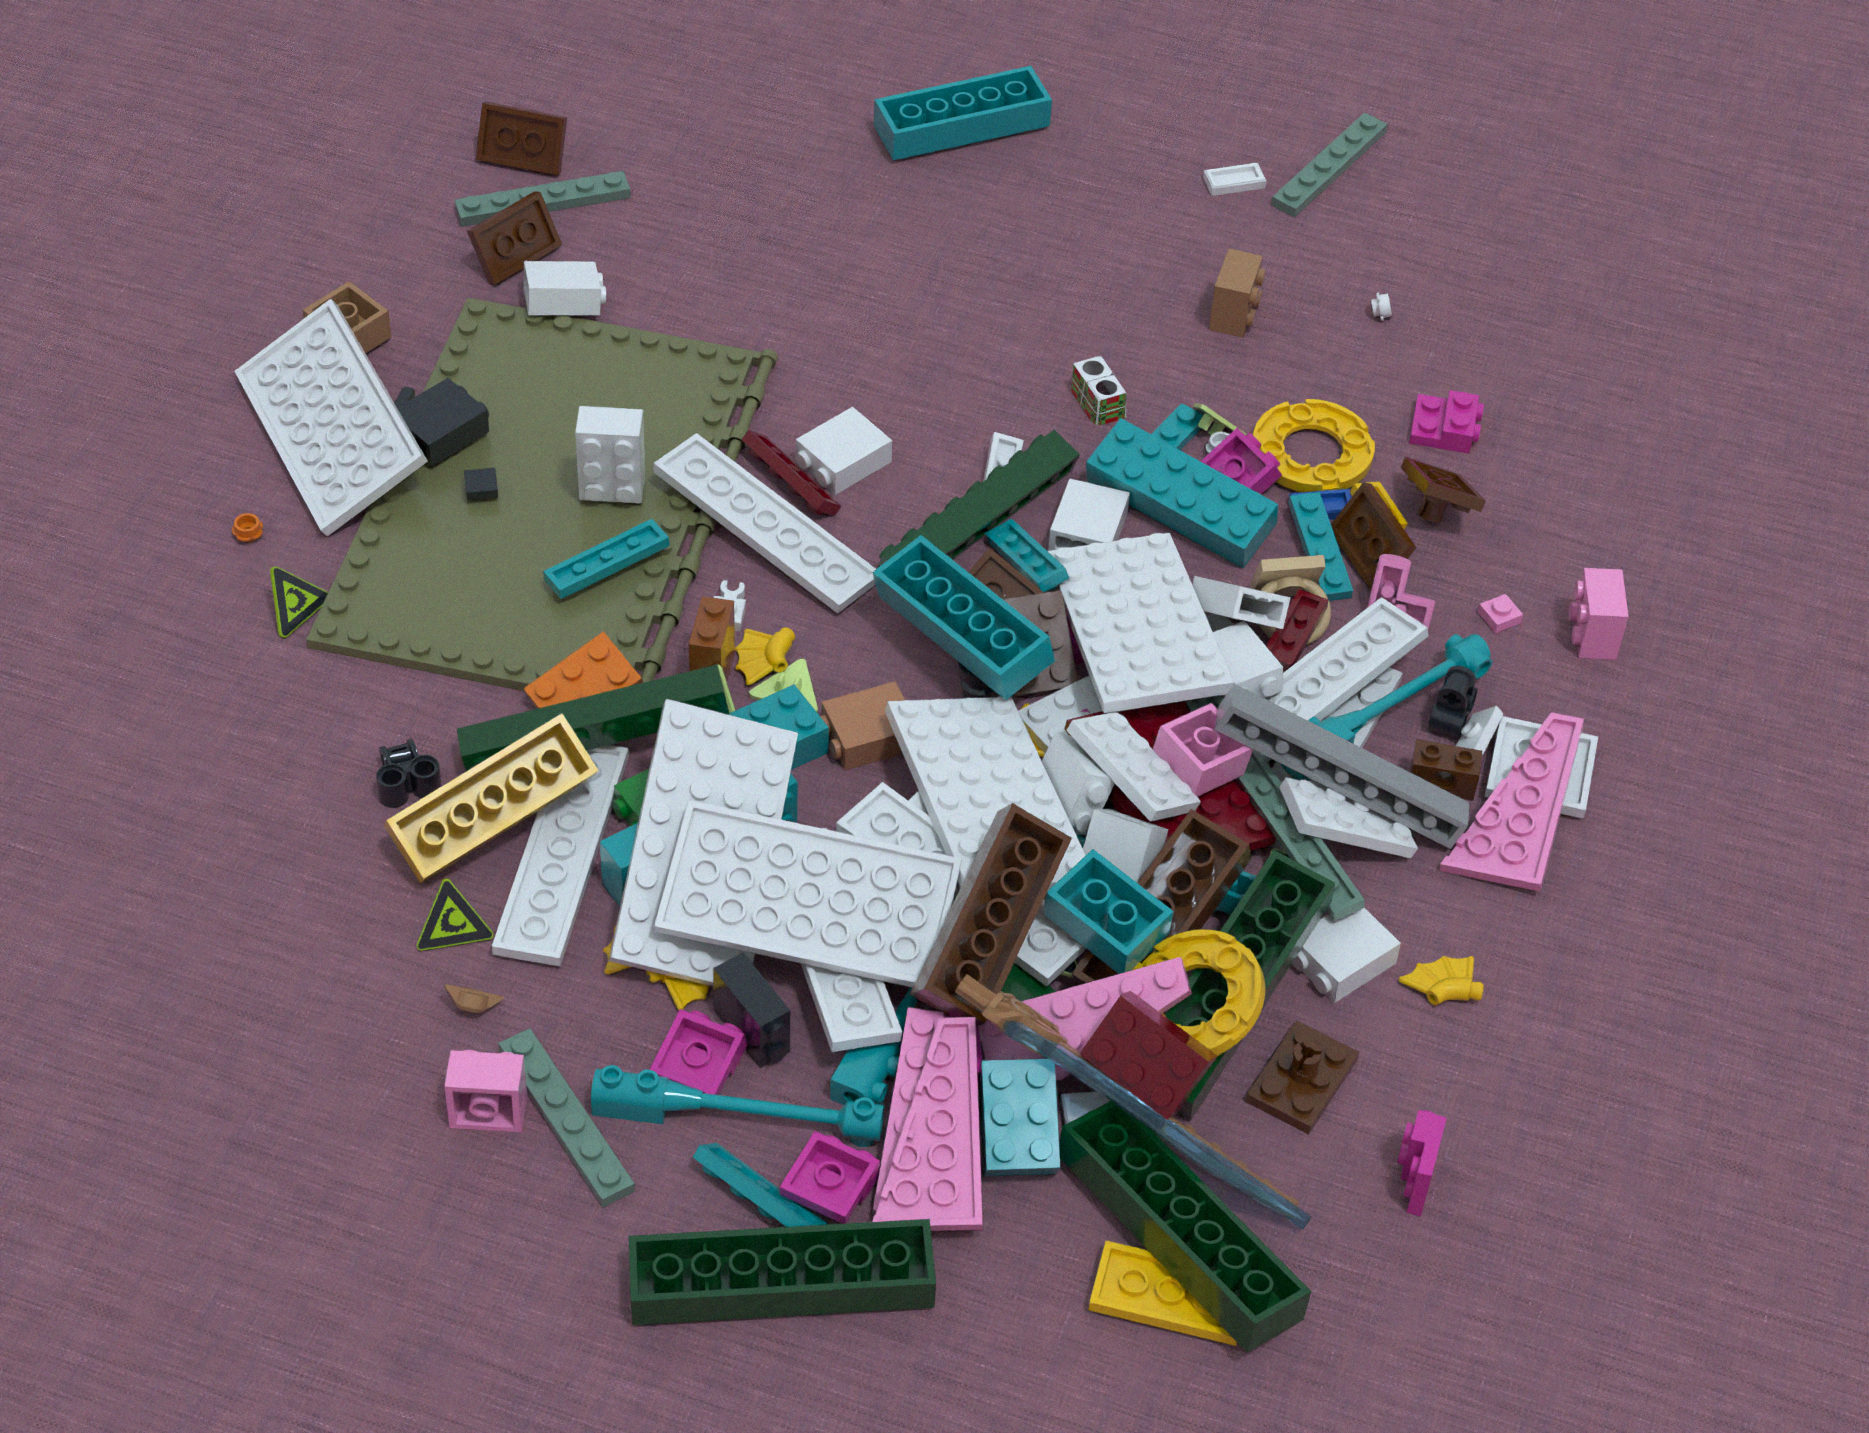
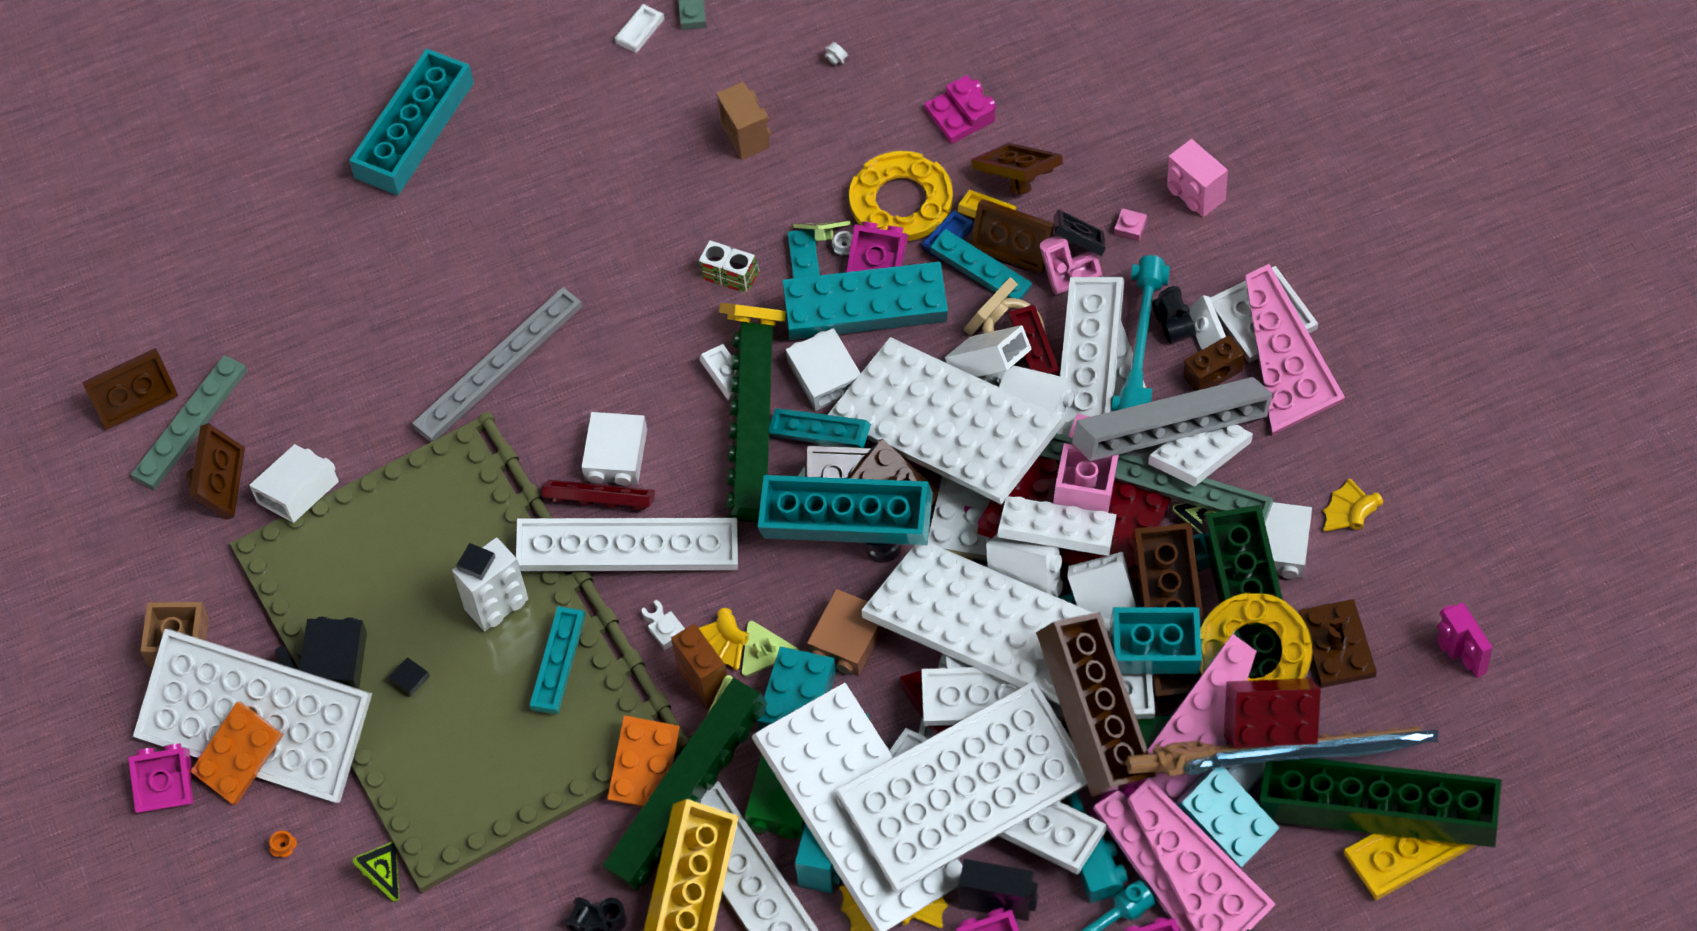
camera: 35 degrees left, 10 degrees up
(217, 412) = (161, 778): none -> dark pink plate
(288, 434) = (237, 752): none -> orange plate
(603, 411) = (475, 561): none -> black tile
(825, 326) = (497, 365): none -> light grey plate
(1066, 426) = (744, 313): none -> yellow plate
(1436, 576) = (1079, 232): none -> black tile

